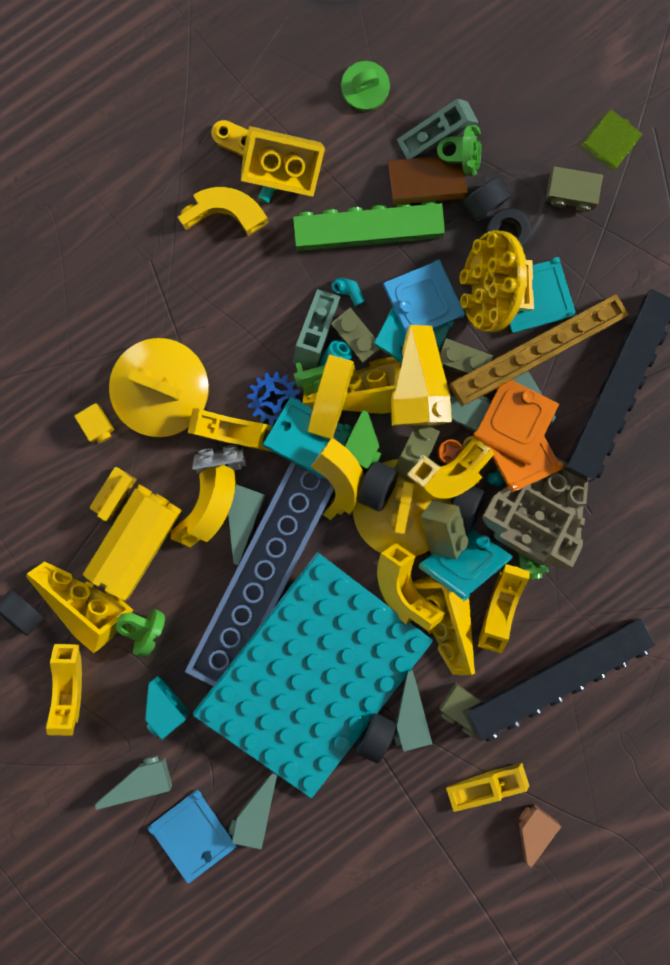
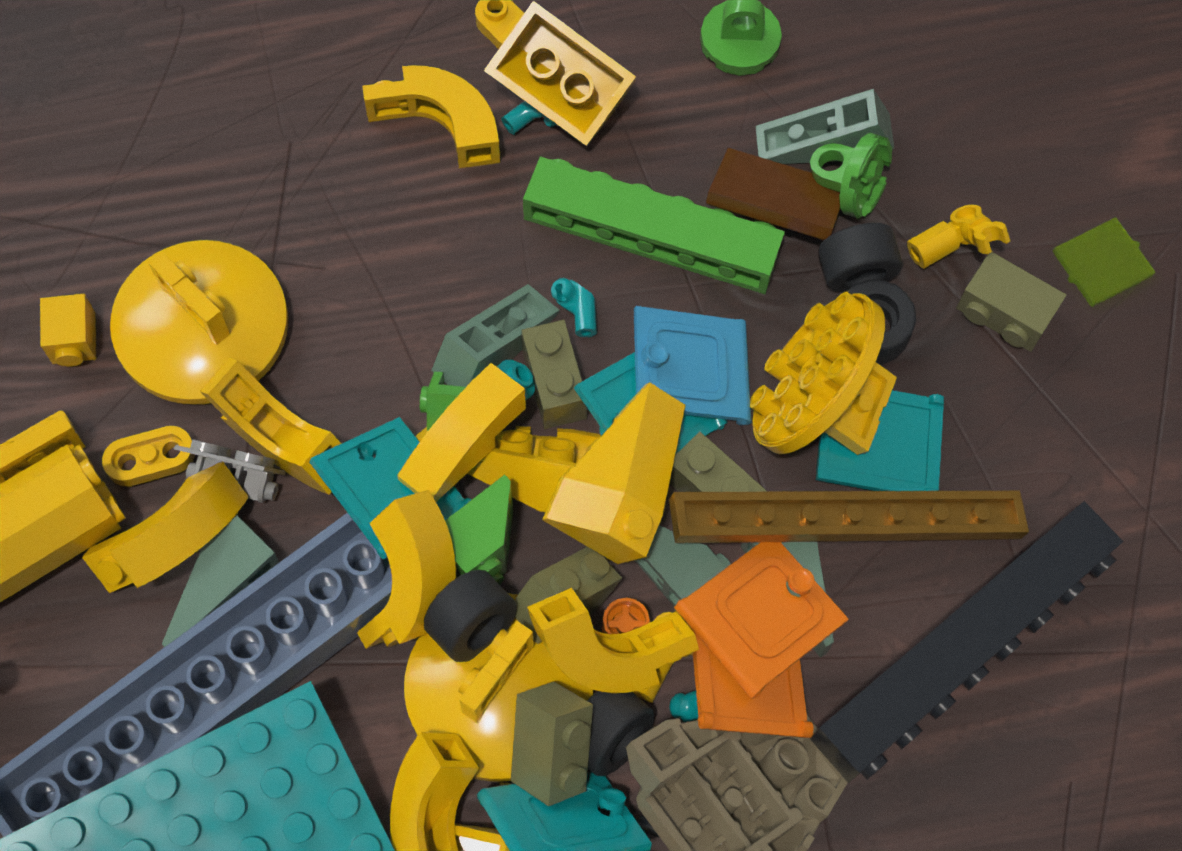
camera: 20 degrees right, 20 degrees down
(172, 470) = (150, 453): none -> yellow plate
(270, 388) = (368, 394): blue gear -> none
(534, 153) = (966, 227): none -> yellow bar

